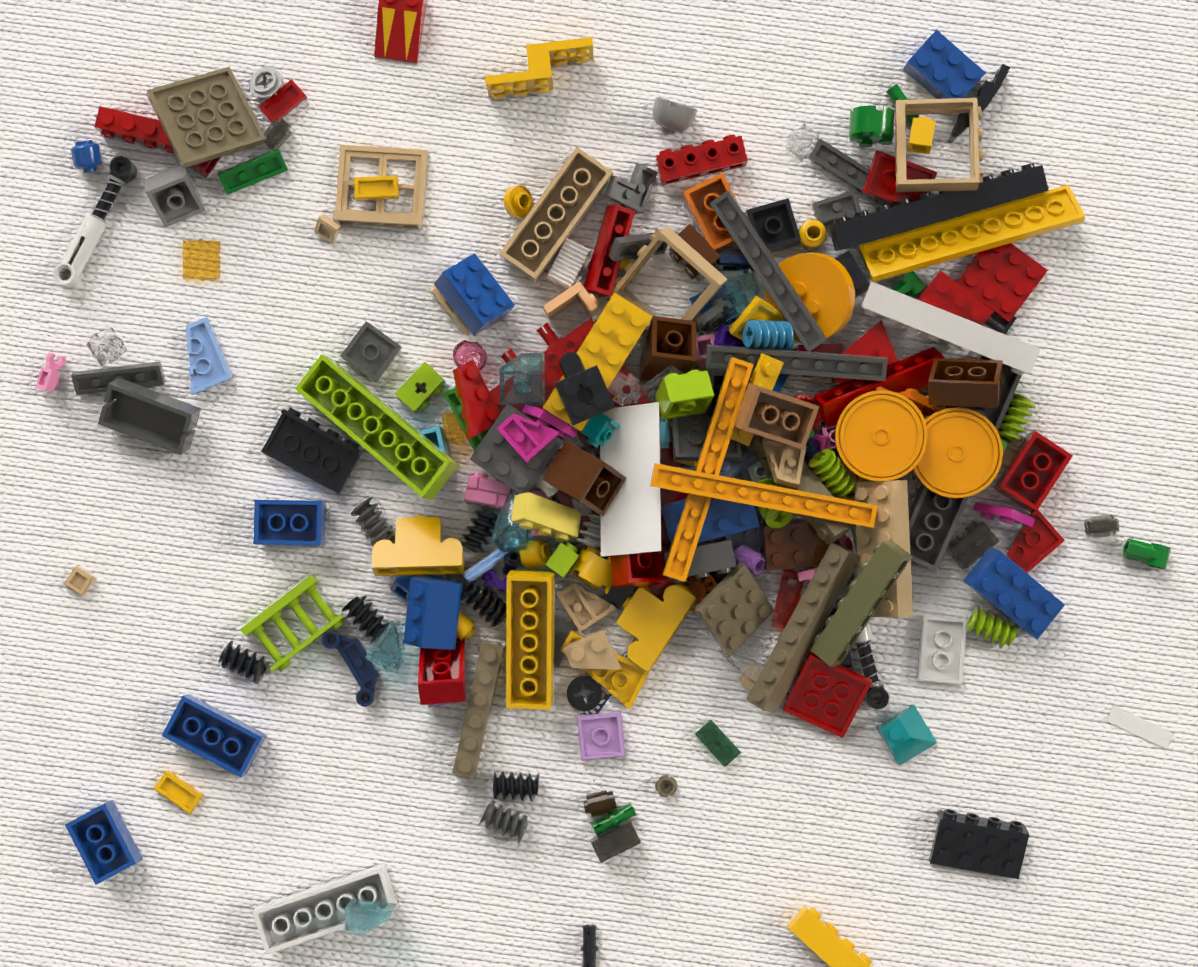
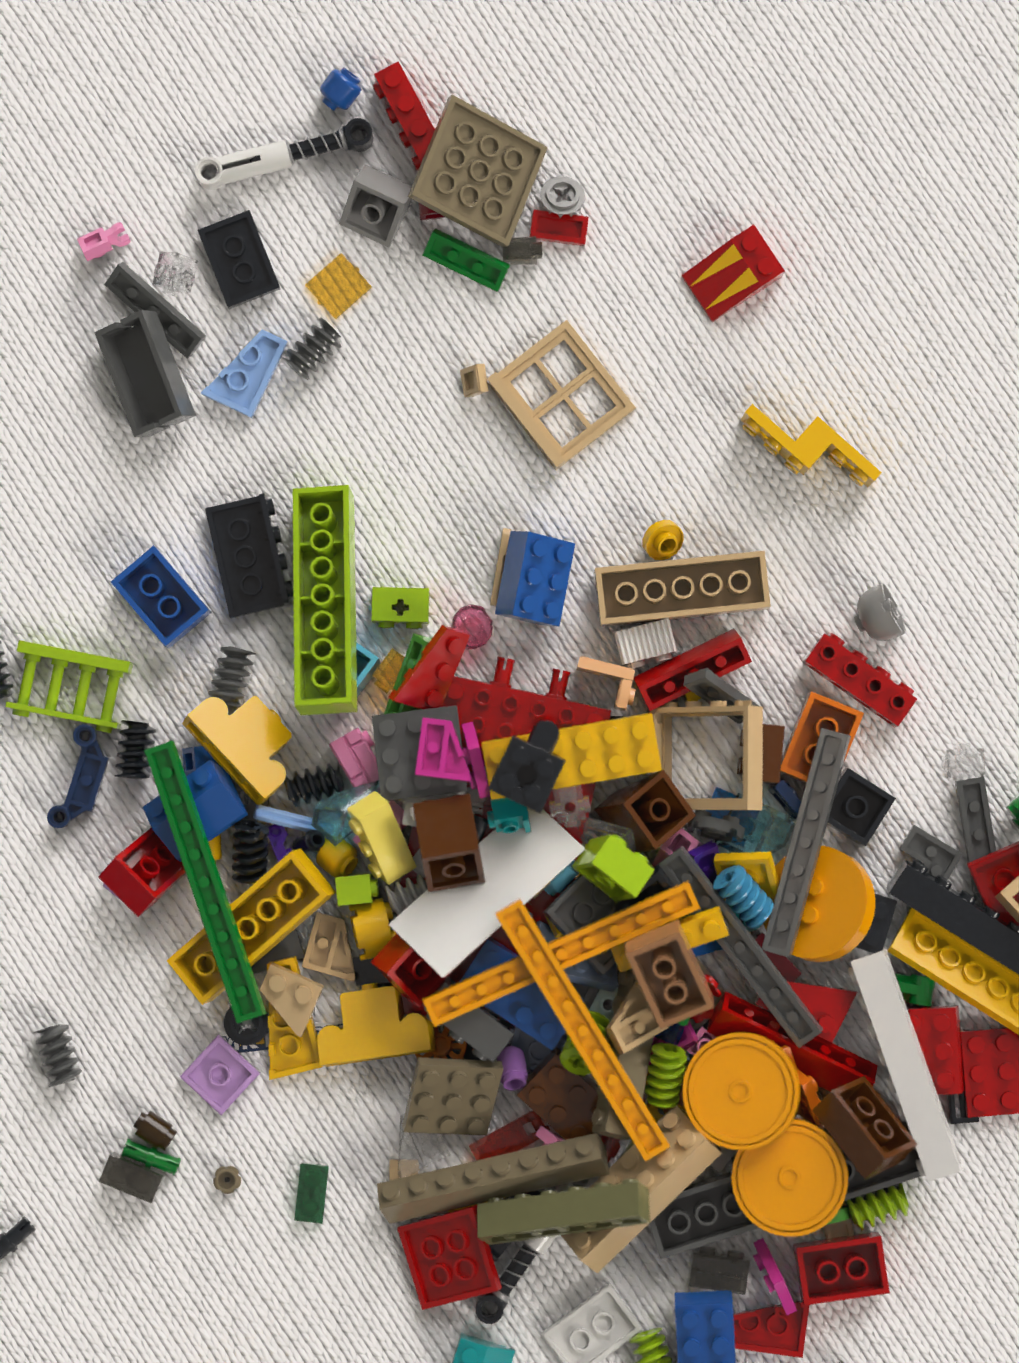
camera: 45 degrees right, 0 degrees up
(133, 303) = (239, 259): none -> black plate
(224, 305) = (313, 349): none -> dark grey piece
(371, 351) = (393, 527): dark grey plate -> none
(376, 188) = (555, 392): yellow tile -> none
(389, 648) = (124, 798): clear light blue slope -> none
(478, 709) = (131, 941): dark tan brick -> none
(479, 643) = (205, 881): none -> green plate
(515, 786) = (100, 1035): black piece -> none
(523, 380) = (492, 700): clear light blue slope -> none
(633, 193) = (771, 645): dark grey plate -> none
(815, 229) = (891, 848): yellow head -> none

